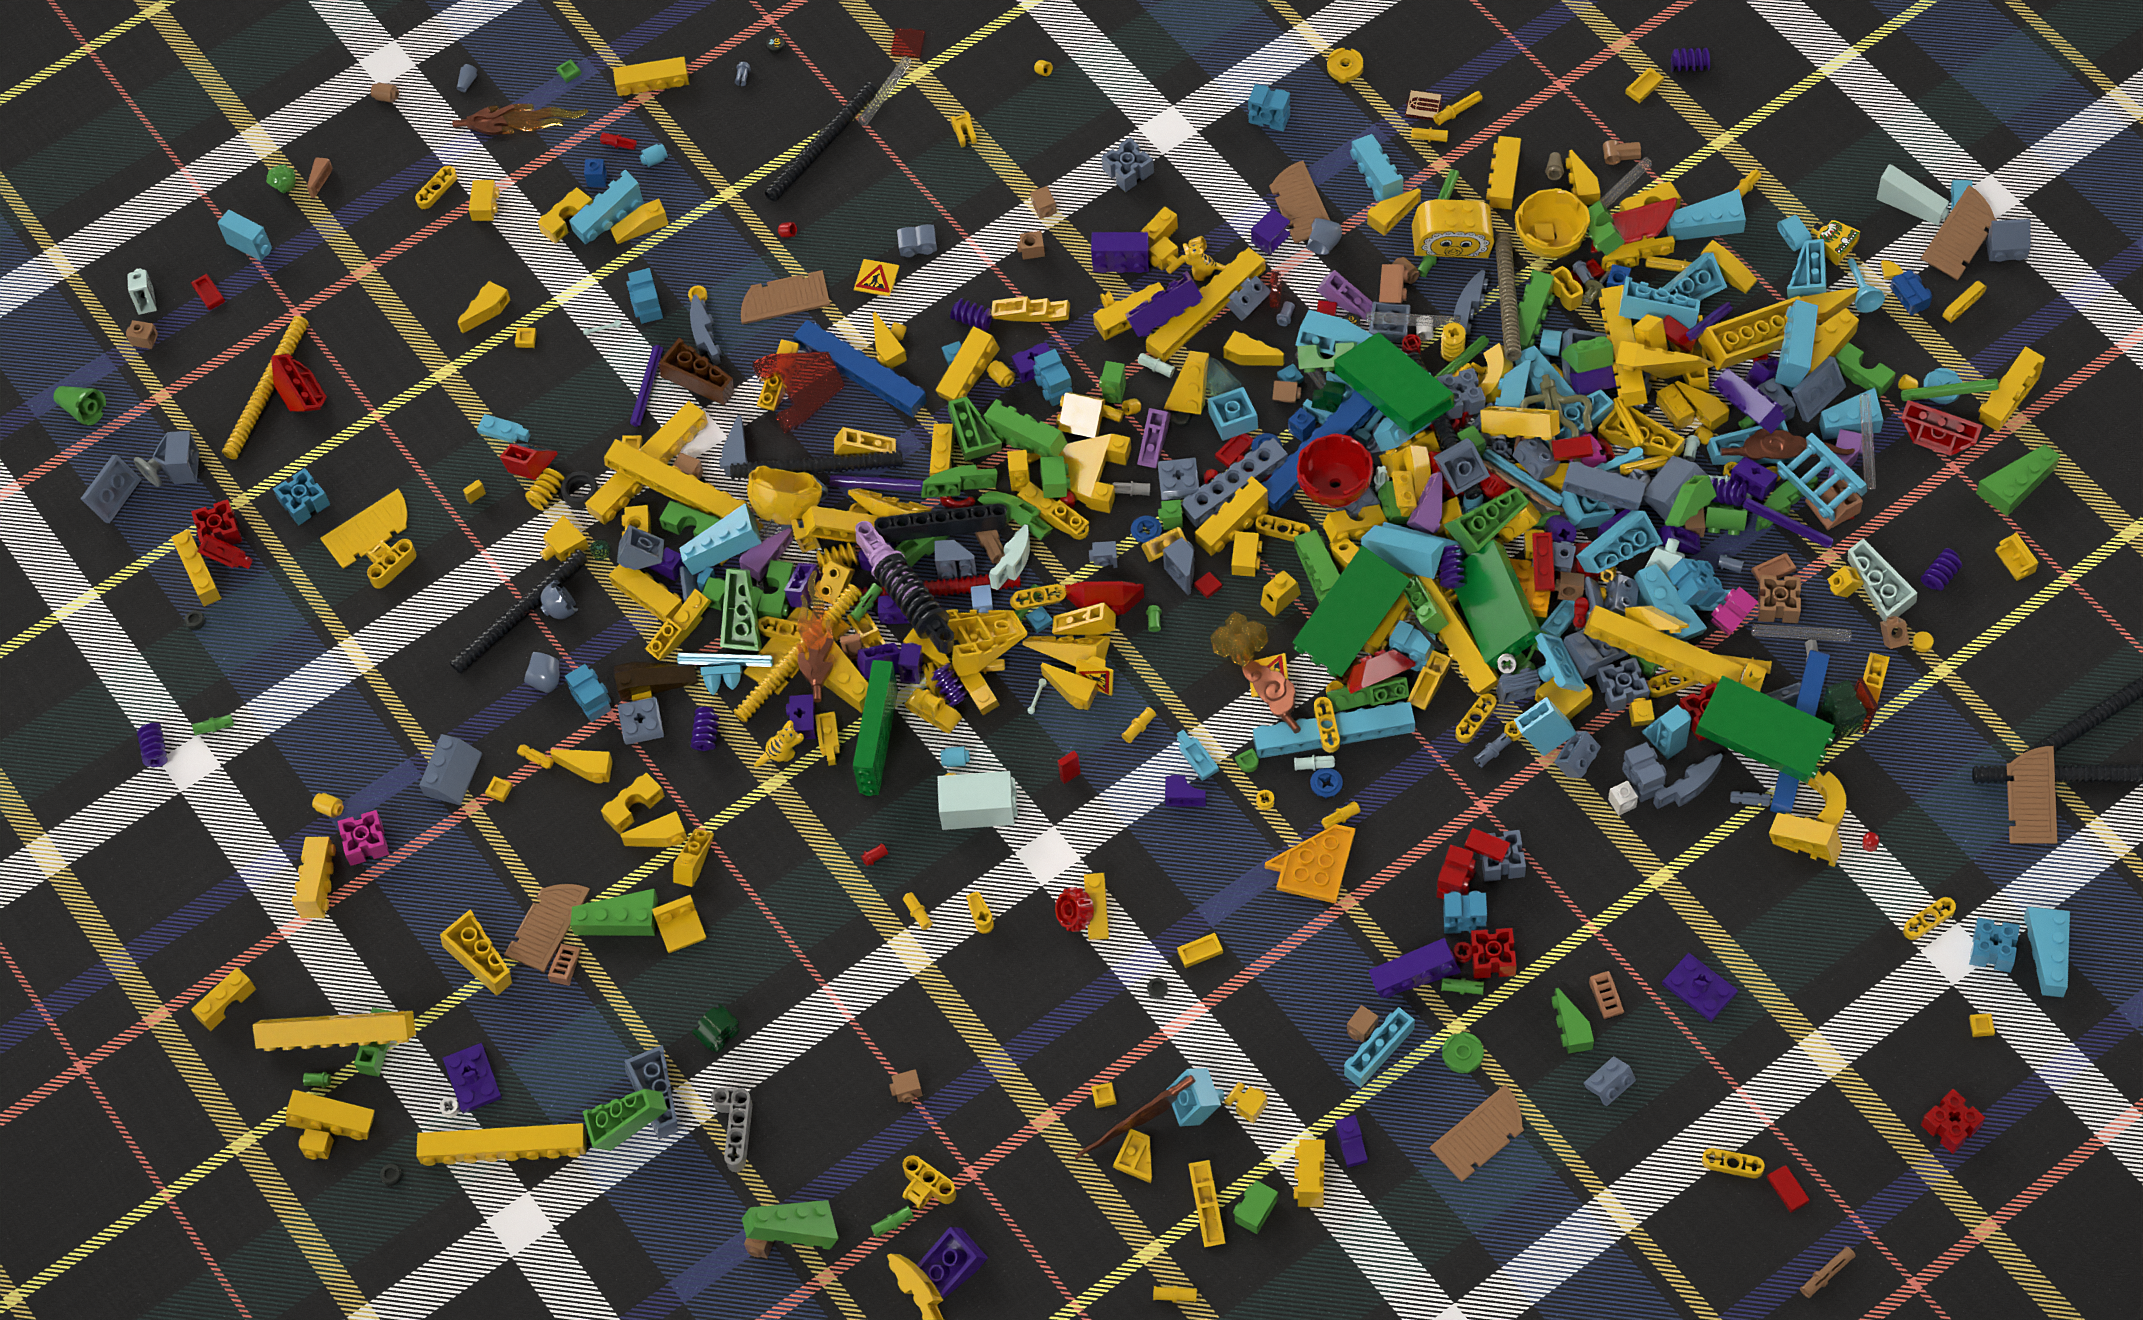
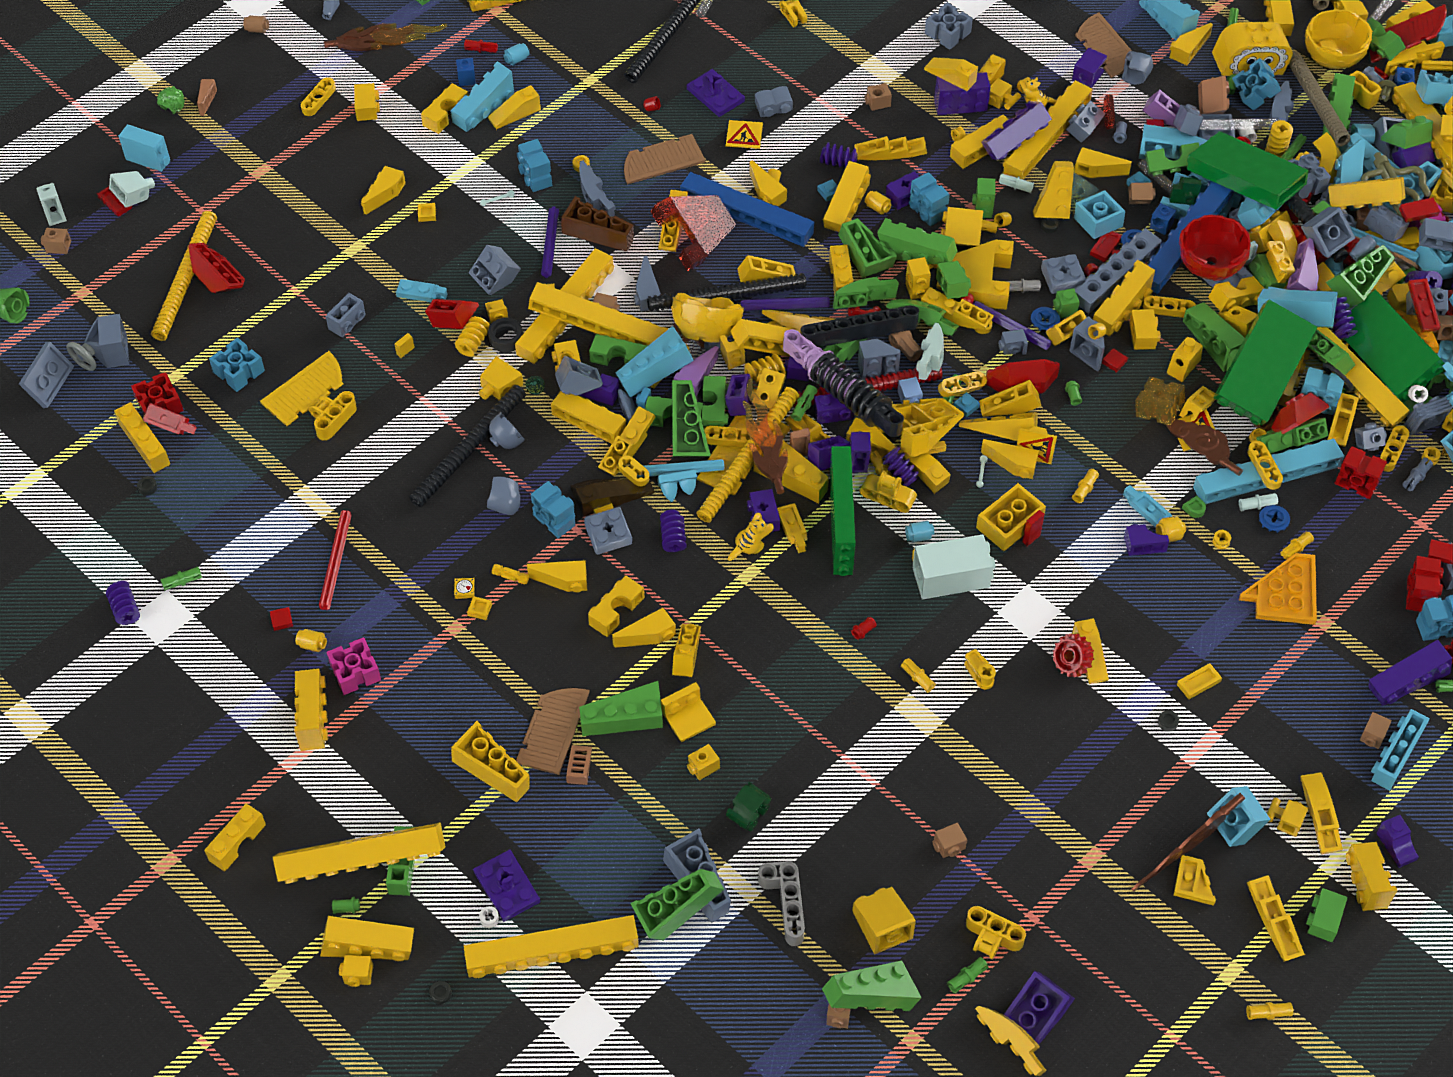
camera: 15 degrees left, 5 degrees down
(225, 280) = (130, 187): none -> light aqua torso
(303, 778) = (281, 618): none -> red tile
(366, 721) = (335, 560): none -> red axle
(419, 451) = (345, 315): none -> sand blue brick
(450, 770) = (428, 595): sand blue slope -> none
(487, 766) = (464, 588): none -> tile
(576, 460) = (496, 310): none -> yellow bracket
(581, 413) = (494, 269): none -> sand blue slope
(674, 661) = (632, 471): none -> yellow beam
(684, 977) = (703, 762): none -> yellow brick
(822, 1157) = (884, 919): none -> yellow slope
(858, 222) = (715, 93): none -> dark purple plate
(1042, 751) = (1006, 517): none -> yellow brick
(1043, 202) = (880, 62): medium nougat brick -> none
(1103, 1095) = (1144, 827): yellow tile -> none
(1109, 229) = (955, 71): none -> yellow slope
(1109, 533) = (1011, 325): none -> dark purple axle
(1153, 437) = (1032, 241): medium lavender slope -> none
(1187, 553) = (1101, 328): none -> yellow piece
(1213, 783) = (1172, 527): none -> yellow head
(1276, 645) = (1198, 402): none -> yellow hinge
(1281, 1103) = (1322, 812): none -> yellow slope
(1356, 310) = (1188, 119): none -> sand blue brick
(1427, 743) = (1360, 472): none -> red brick
(1447, 271) = (1256, 84): none -> dark azure brick
(1452, 703) = (1370, 437): none -> sand blue brick
(1497, 487) = (1363, 247): none -> sand blue cone

